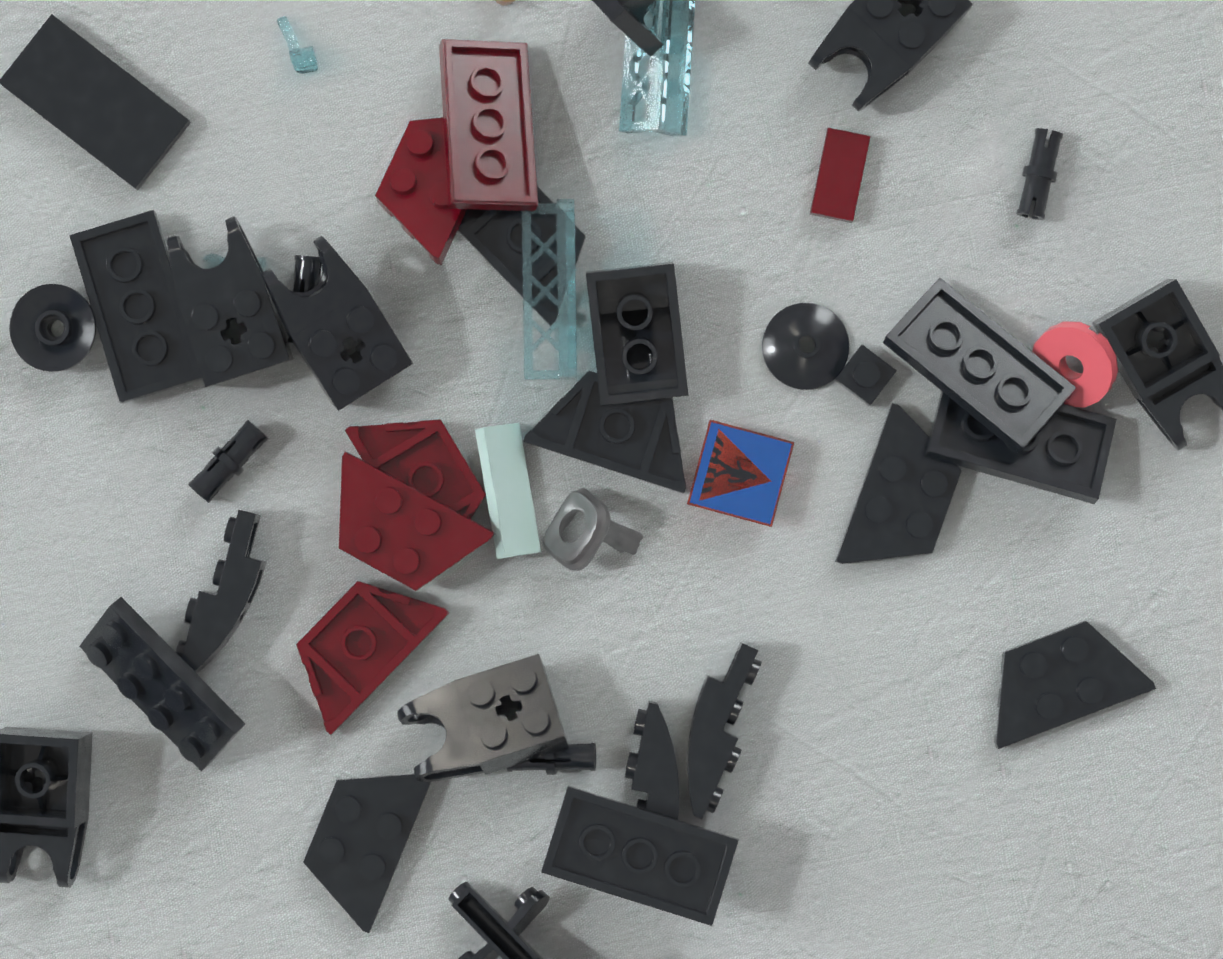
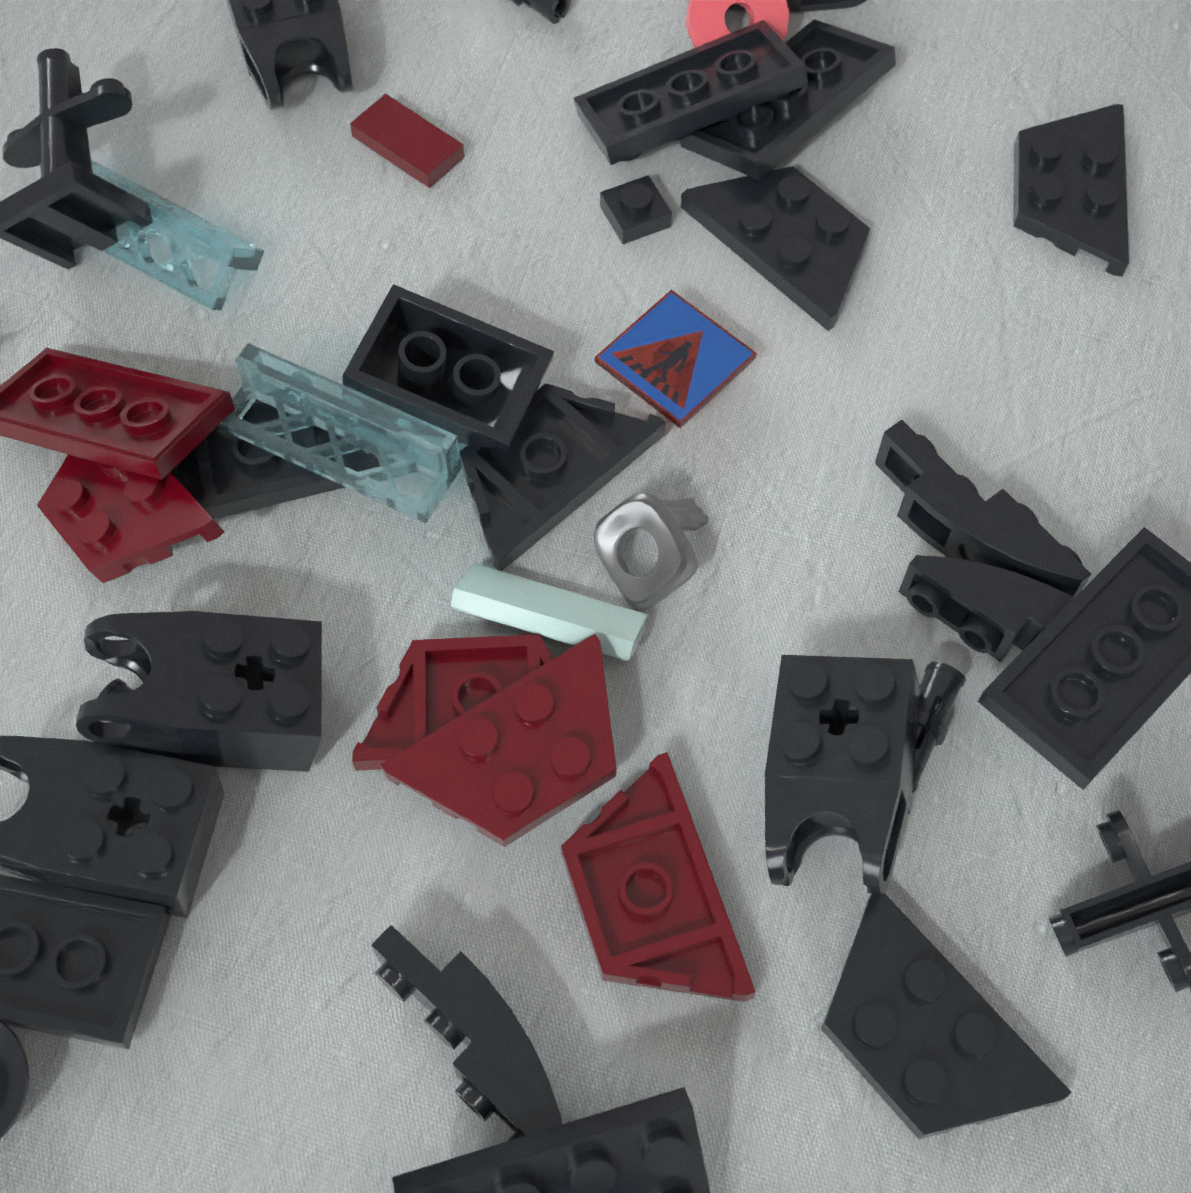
camera: 60 degrees left, 25 degrees down
(228, 461) = (298, 940): black pin -> none
(792, 365) = (568, 252): black dish -> none

